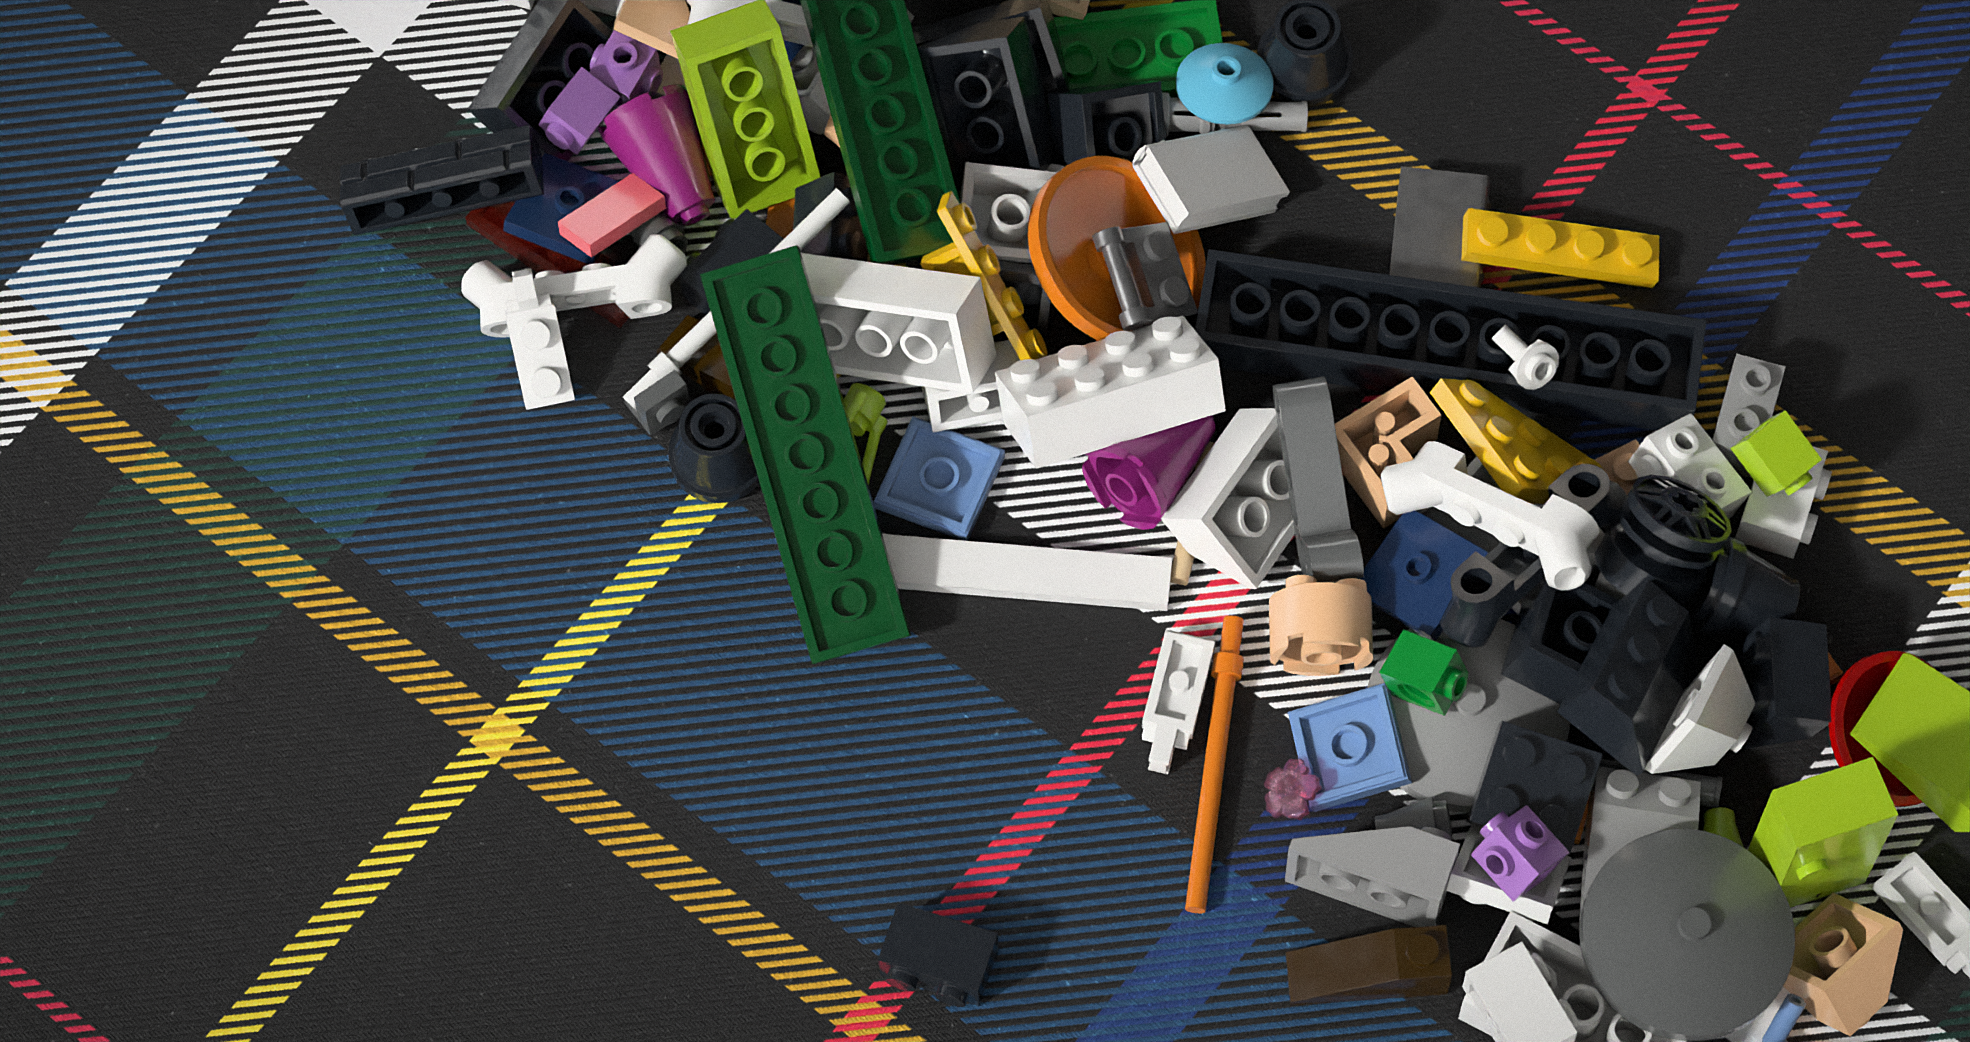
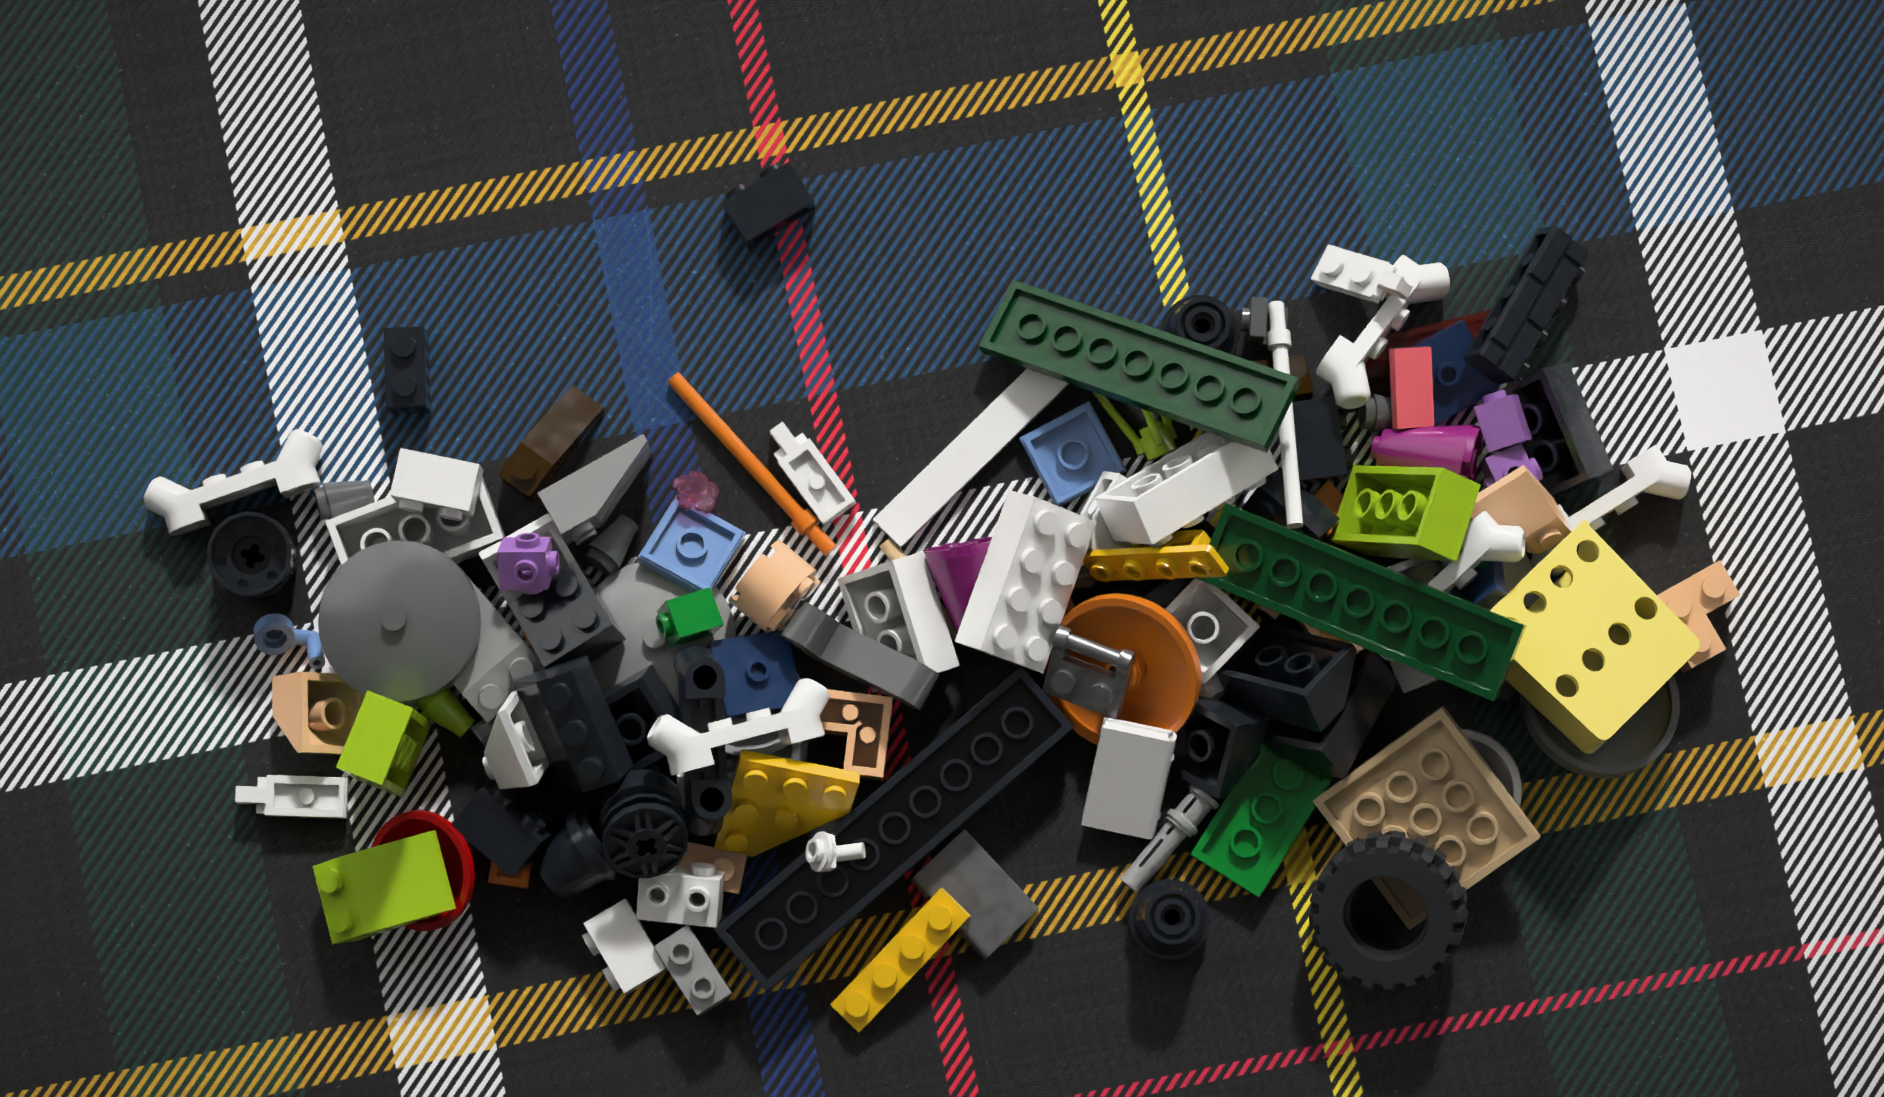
camera: 125 degrees right, 15 degrees up
(1219, 96) = (1170, 837): medium azure dish -> none
(1777, 455) = (640, 947): lime brick -> none

